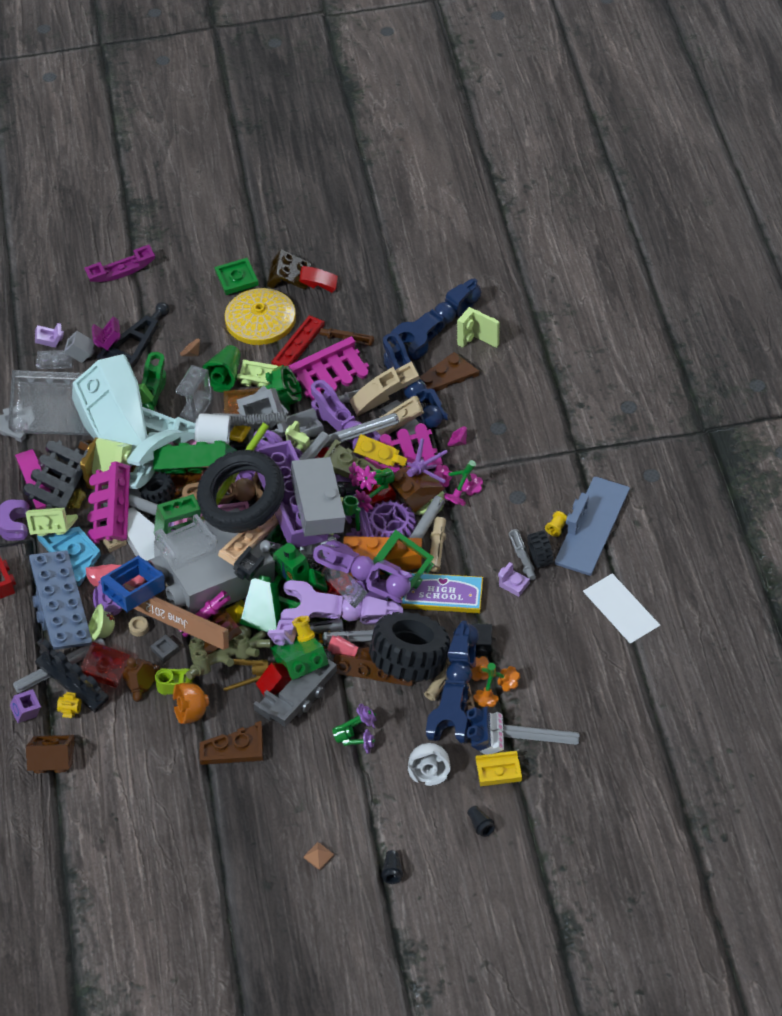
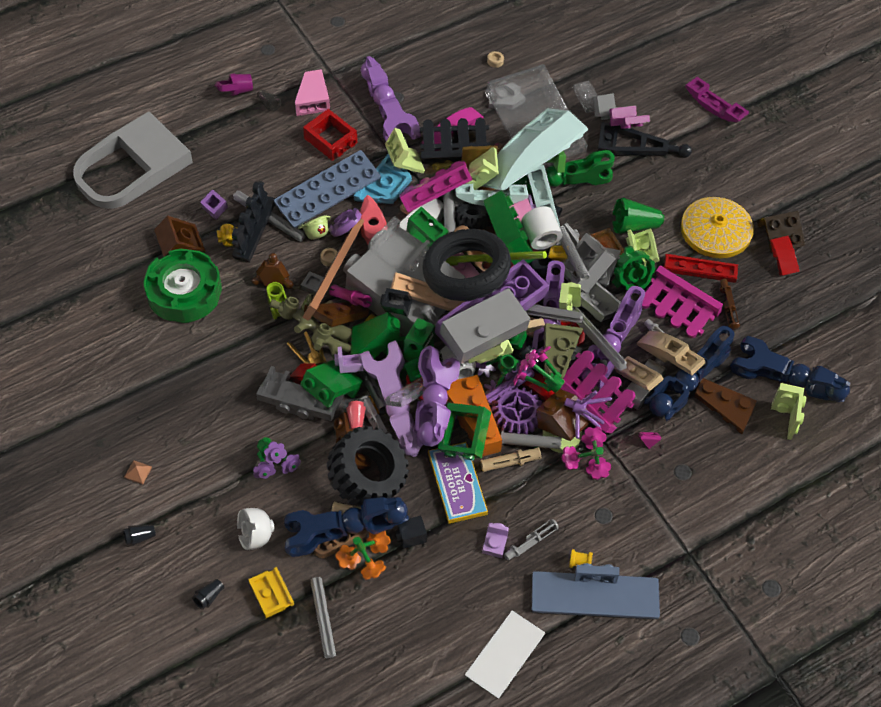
camera: 65 degrees right, 5 degrees up
(48, 336) = (608, 81): lavender bracket -> none
(104, 664) = (275, 240): clear red plate -> none
(116, 759) = (183, 285): none -> green piece
(127, 600) = (353, 216): blue window -> none
(144, 451) = (507, 188): light aqua slope -> none
(190, 702) = (257, 318): orange cylinder -> none
(191, 349) = (648, 188): nougat slope -> none
(198, 393) = (587, 203): clear panel -> none
(236, 276) = (753, 191): green plate -> none
(239, 746) = (227, 369): reddish brown wing -> none
(303, 628) = (355, 373): yellow bush -> none
(378, 451) = (584, 368): yellow hinge -> none
(485, 730) = (294, 562): dark blue hips -> none
(540, 549) = (536, 551): black tyre -> none

